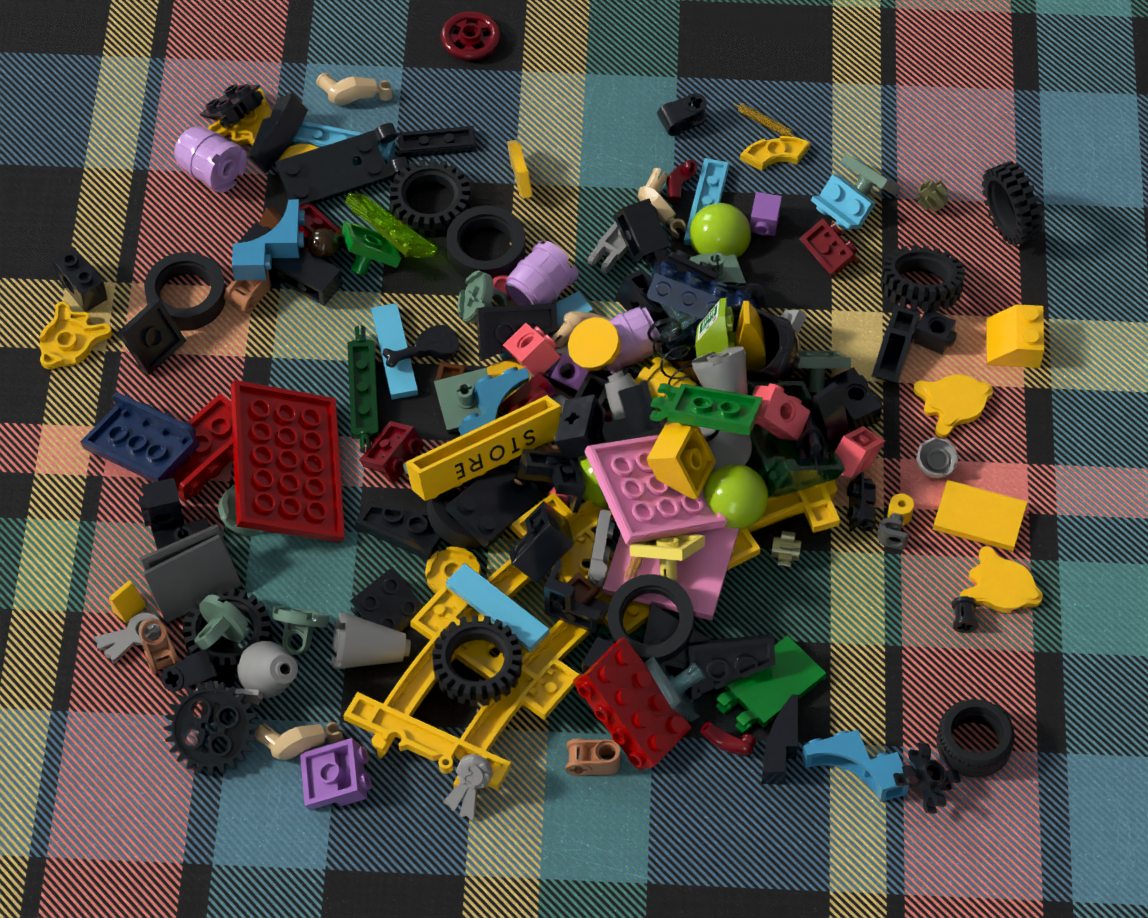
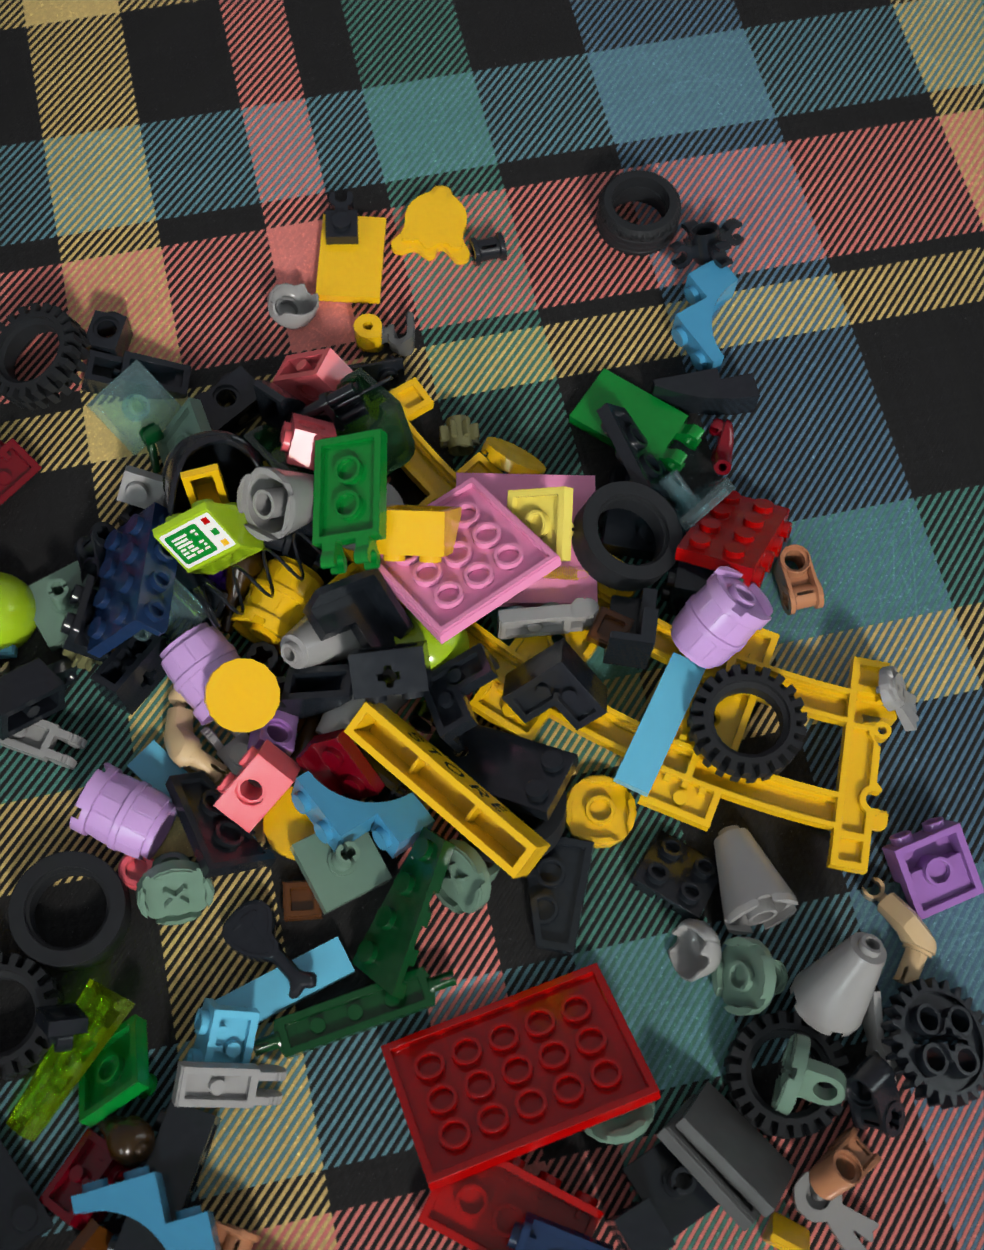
camera: 110 degrees left, 10 degrees up
(330, 600) = (696, 950): none -> light grey hair
(339, 304) = (225, 1085): none -> light grey hinge
(365, 309) = (224, 1033): none -> medium azure bracket
(392, 449) = (451, 943): dark red bracket -> none
(409, 219) = (60, 1023): none -> black tile
(410, 417) = (397, 924): none -> dark green wing
(550, 636) = (720, 618): none -> lavender piece
(736, 494) = (427, 475): lime piece -> none
(751, 576) = (511, 457): none -> yellow tile
(834, 340) = (150, 435): none -> dark green hand
(863, 335) = (132, 403): none -> clear light blue tile
(954, 400) = (199, 308): yellow tile -> none
(1010, 510) = (341, 221): none -> black plate
(1015, 337) = (98, 254): yellow slope -> none

